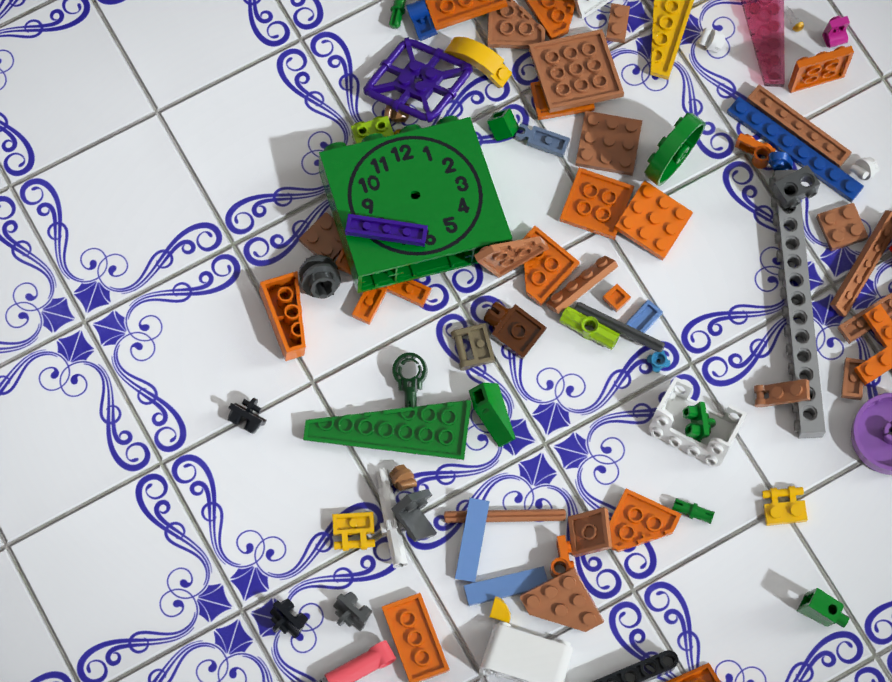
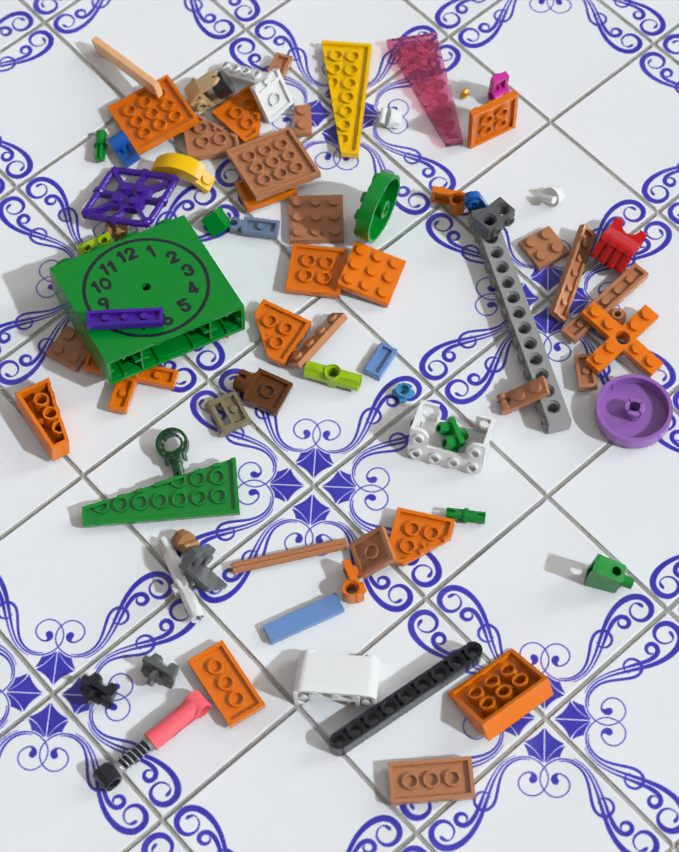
camera: 10 degrees left, 10 degrees down
(254, 420) = (32, 519): black hips -> none
(319, 276) = (71, 378): dark grey piece -> none
(353, 524) = (145, 592): yellow plate -> none
(472, 540) = (262, 582): medium blue tile -> none
(492, 411) = (258, 465): green slope -> none
(500, 610) = (302, 640): yellow tile -> none
(509, 255) = (245, 324): nougat plate -> none
(563, 602) = (361, 620): nougat plate -> none
(616, 298) = (352, 346): orange plate -> none
(621, 328) = (364, 370): dark grey axle -> none
(784, 512) = (552, 499): yellow plate -> none
(795, 148) = (457, 181): blue plate -> none
(798, 126) = (484, 173): nougat plate -> none

